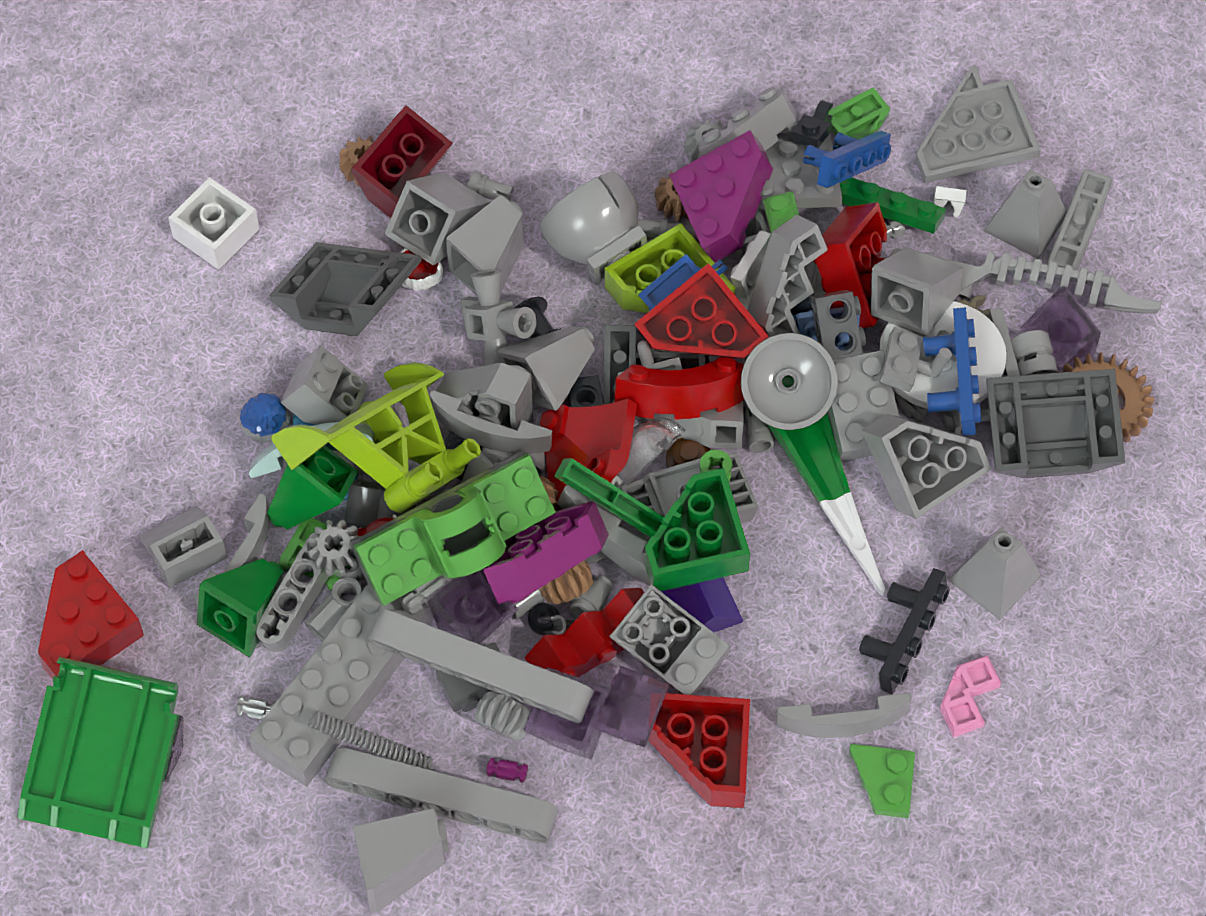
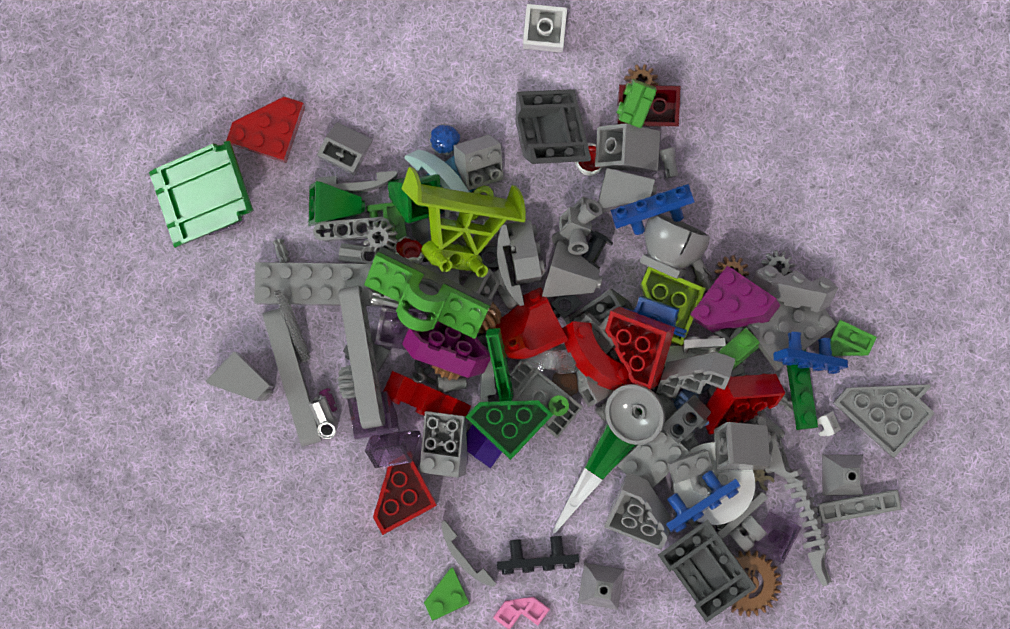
camera: 55 degrees right, 25 degrees up
(389, 158) = (636, 103): none -> bright green brick
(524, 779) = (323, 415): none -> light grey piece
(532, 213) = (652, 206): none -> blue plate
(813, 129) = (820, 322): black plate -> none

